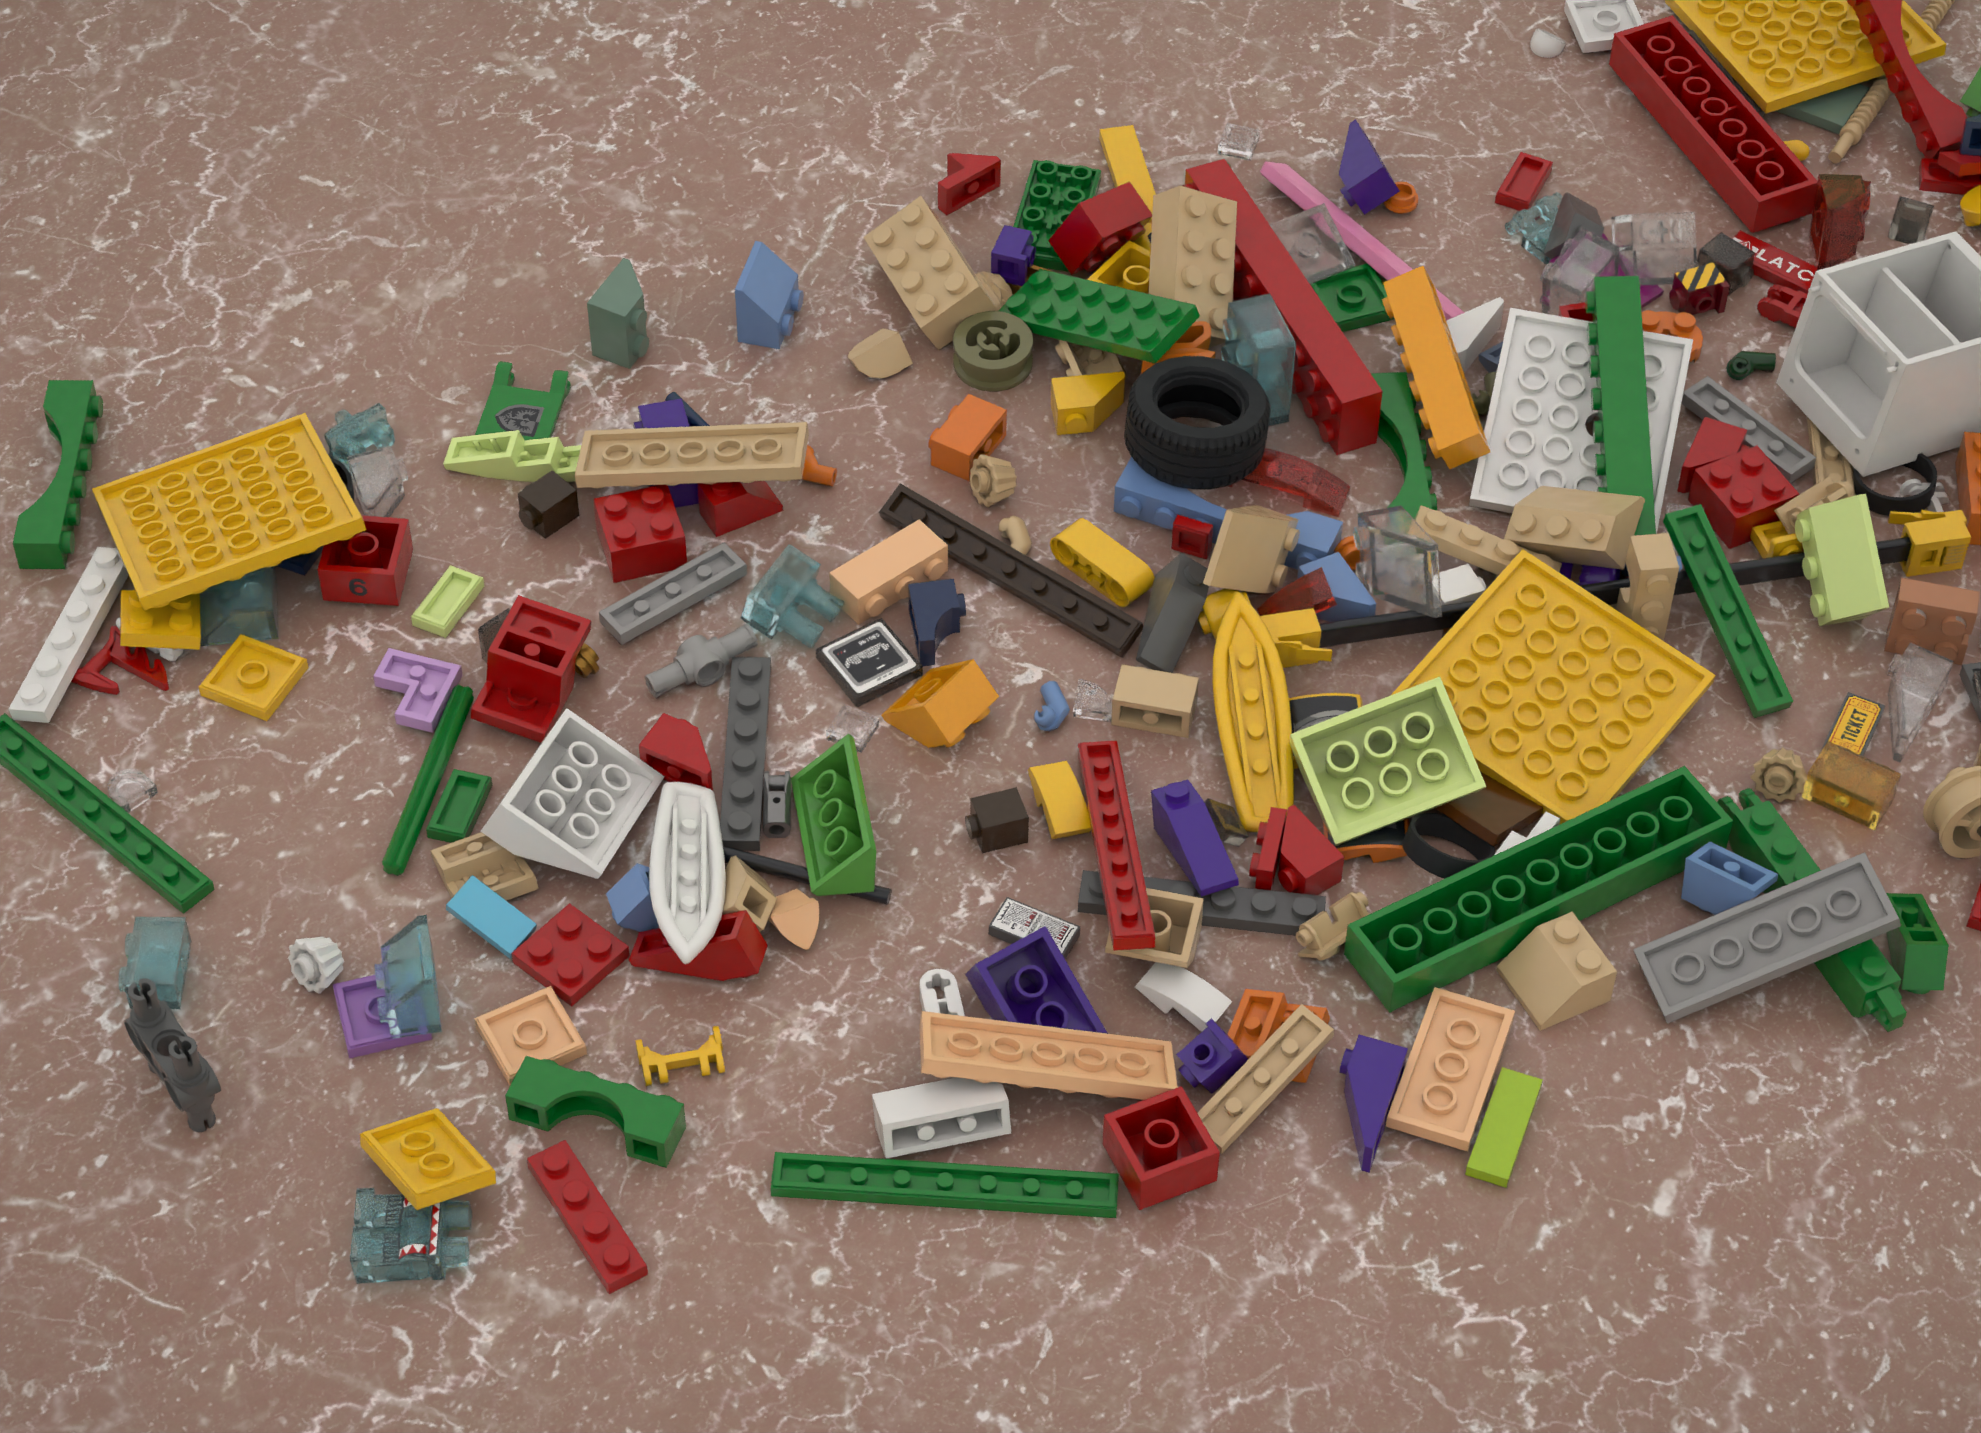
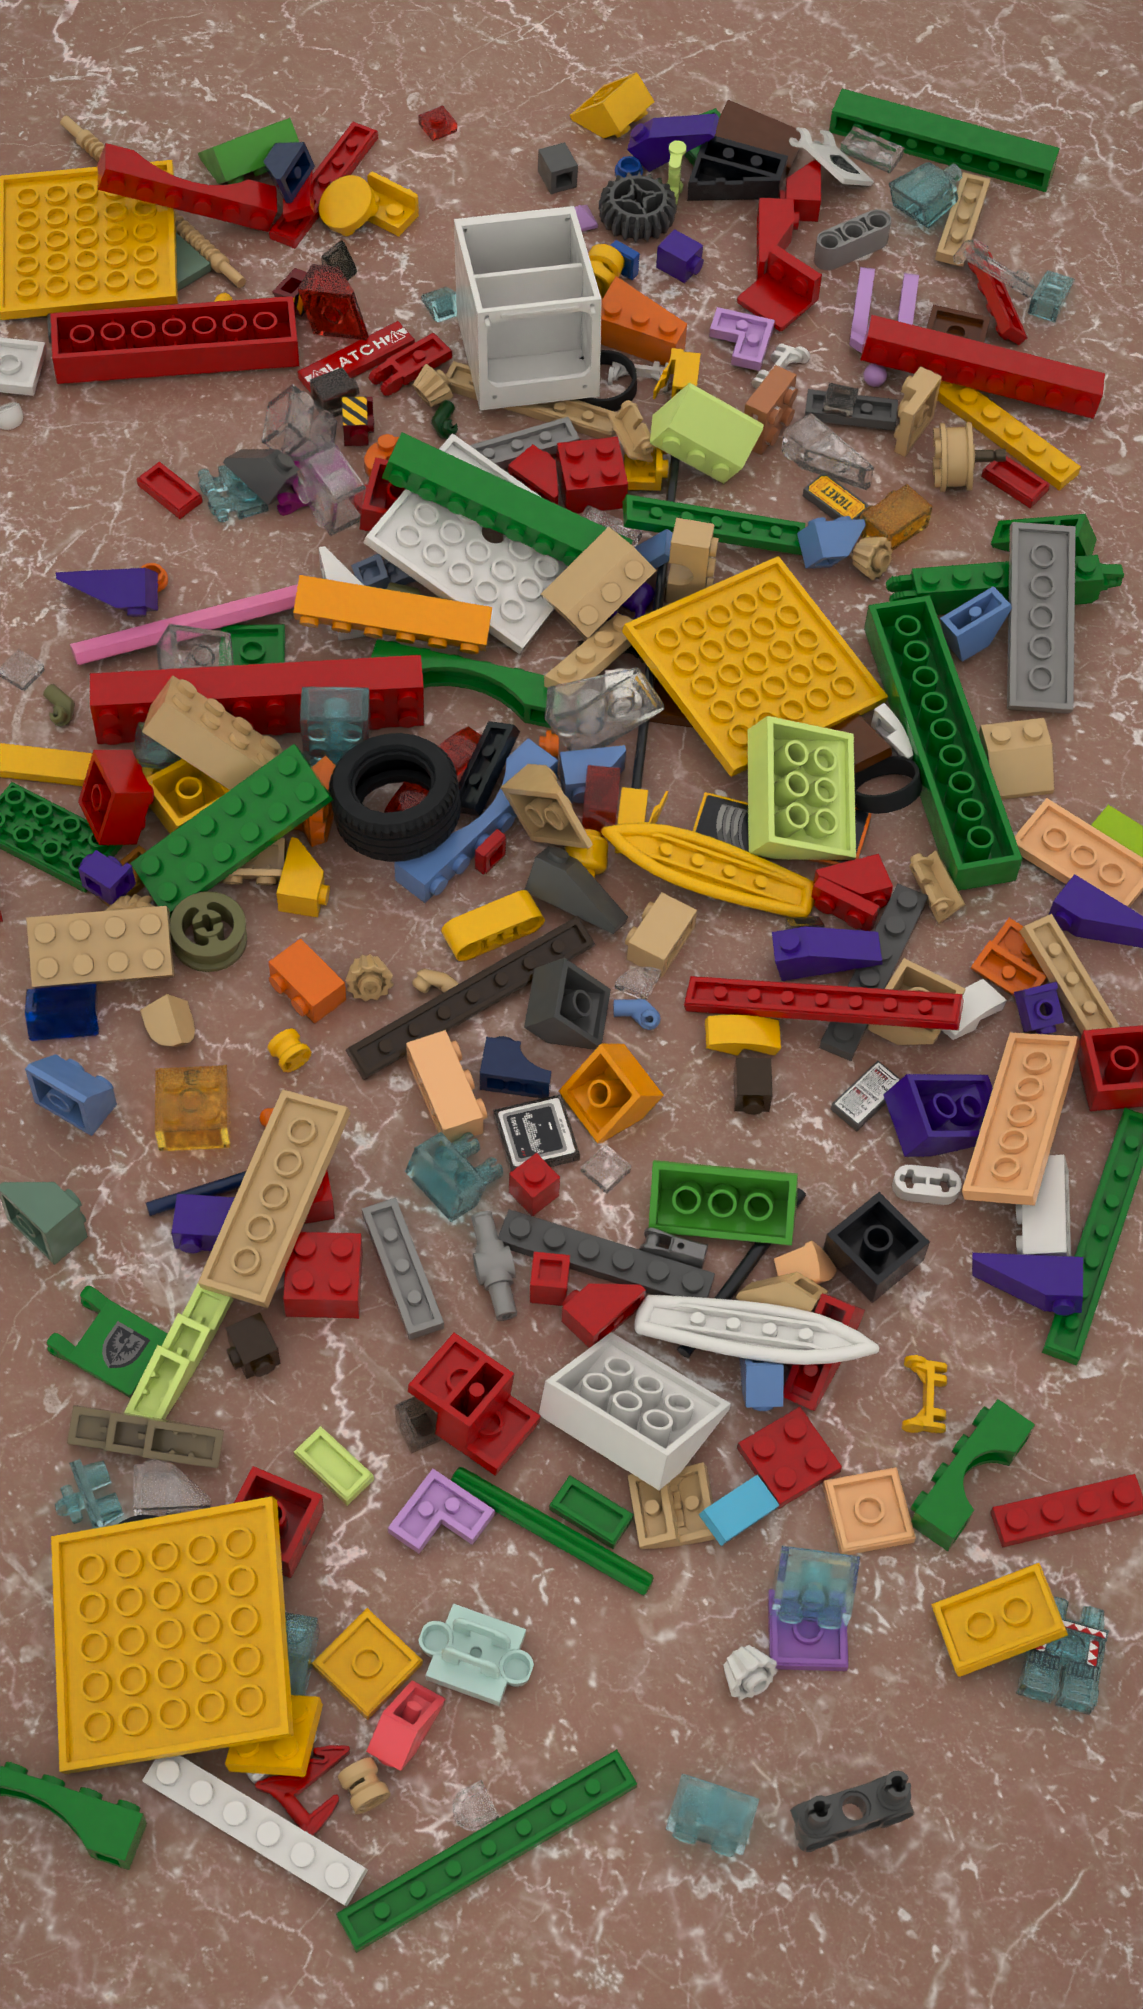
camera: 75 degrees left, 10 degrees up
(126, 699) = (364, 1785): none -> tan wheel
(195, 712) = (405, 1725): none -> coral slope
(280, 749) = (473, 1654): none -> light aqua piece
(428, 454) = (145, 1436): none -> dark tan slope
(700, 702) = (549, 1278): none -> red panel
(787, 388) = (192, 1108): none -> clear yellow brick
(802, 666) = (534, 1184): none -> red brick
(834, 962) = (875, 1247): none -> black brick
(847, 1122) = (1040, 1280): none -> dark purple slope
(856, 275) = (62, 1012): none -> clear blue bracket
(882, 445) = (289, 1050): none -> yellow wheel
(1029, 646) = (567, 1005): none -> dark grey slope
(1323, 501) = (486, 766): none -> black plate
(1772, 724) = (828, 542): none -> medium blue slope
(1779, 334) = (432, 386): none -> tan piece

